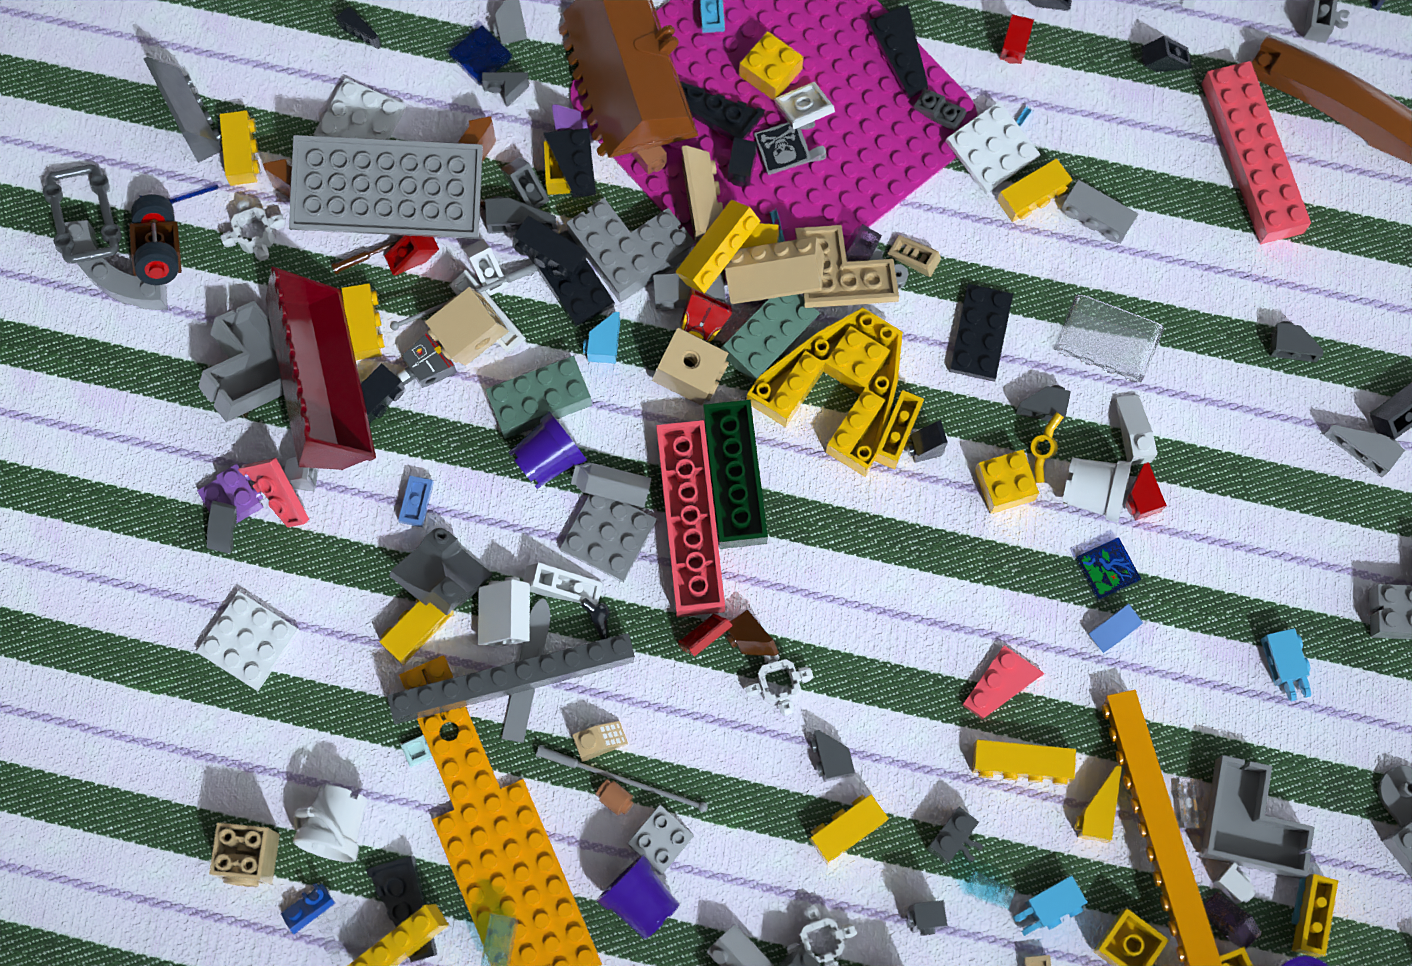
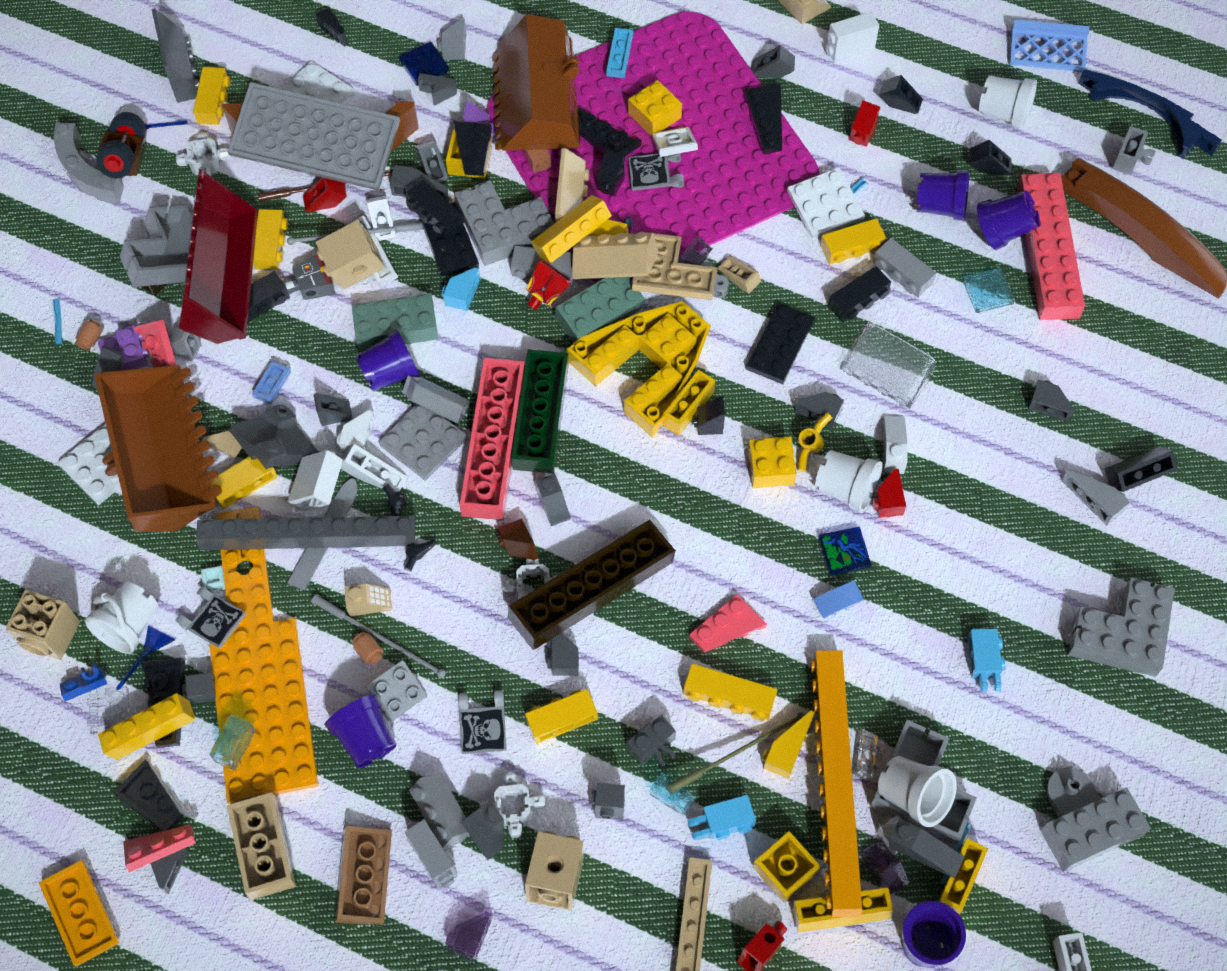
camera: 15 degrees right, 10 degrees down
(63, 241) = (55, 102): dark grey bar -> none
(141, 473) = (58, 321): none -> medium azure piece
(184, 485) = (88, 334): none -> nougat brick
(312, 611) = (157, 447): none -> dark orange piece
(372, 840) = (153, 642): none -> clear blue piece
(382, 586) = (225, 443): none -> tan slope
(435, 803) = (215, 620): none -> flag
(441, 885) = (199, 688): none -> dark grey brick
(496, 520) = (332, 409): none -> dark grey slope
(532, 544) = (357, 432): none -> white slope
(638, 671) = (417, 552): none -> black animal
(704, 362) = (525, 319): tan brick -> none
(704, 634) = (479, 530): red tile -> none
(764, 859) = (482, 728): none -> flag
(774, 577) = (552, 499): none -> dark grey slope
(846, 673) = (590, 584): none -> dark brown brick
(940, 111) = (786, 166): dark grey slope -> none
(1013, 864) = (698, 773): none -> olive piece
(1057, 255) = (859, 294): none -> black brick
(1127, 113) = (944, 194): none -> dark purple piece
(1197, 219) = (988, 290): none -> clear light blue plate
(1206, 132) = (1007, 218): none -> dark purple piece
(1254, 835) = (918, 789): none -> white piece
(1274, 897) = (925, 848): none -> dark grey slope

